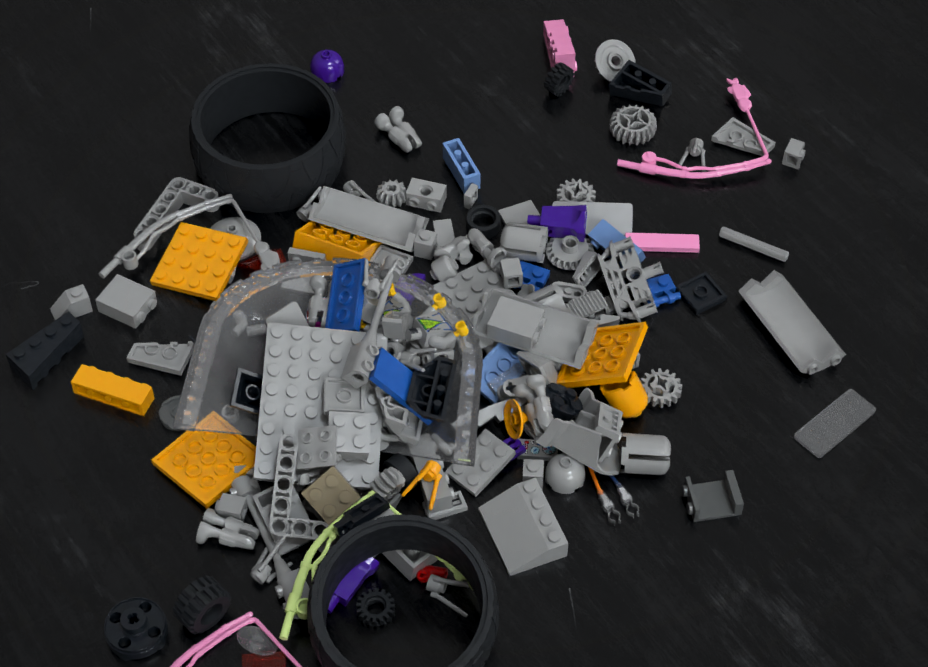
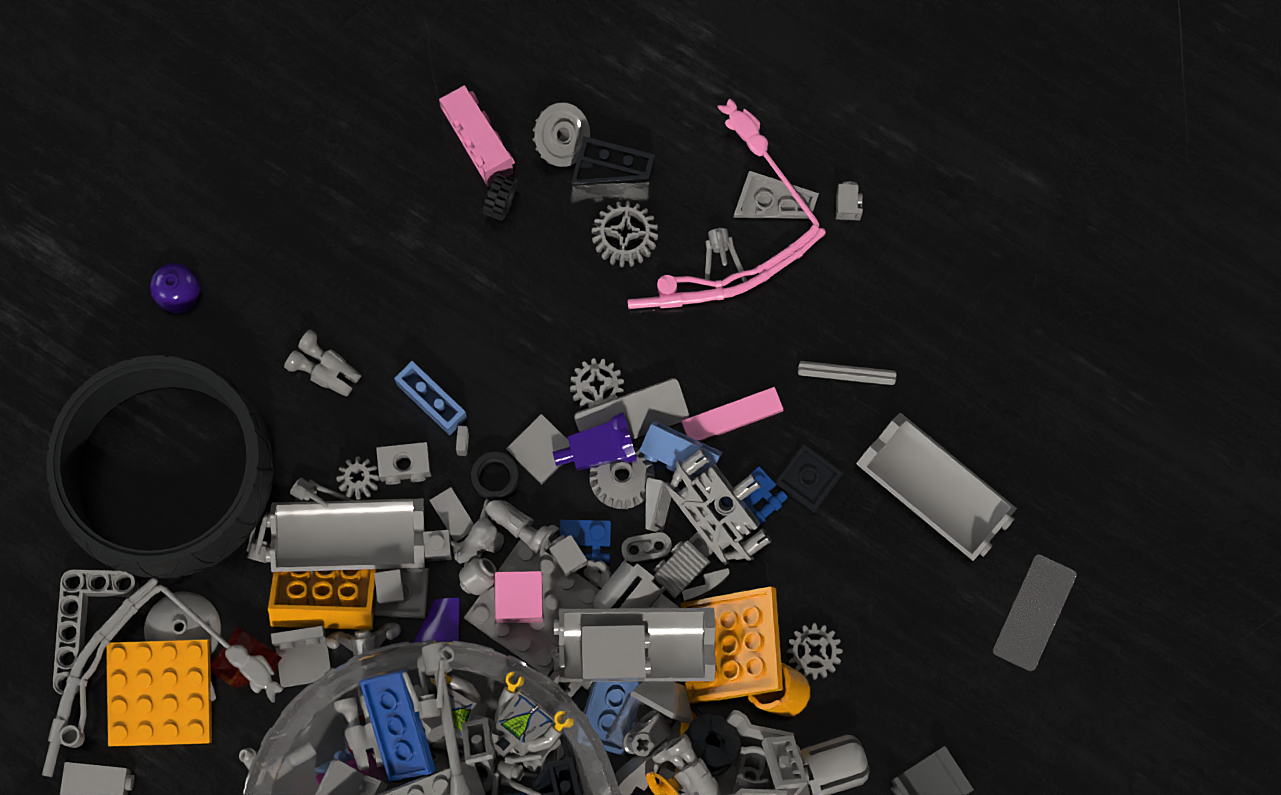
camera: 25 degrees left, 25 degrees up
(382, 248) = (389, 586): none -> light grey panel
(466, 281) = (519, 597): none -> bright pink piece
(524, 241) = (563, 497): light grey cylinder -> none

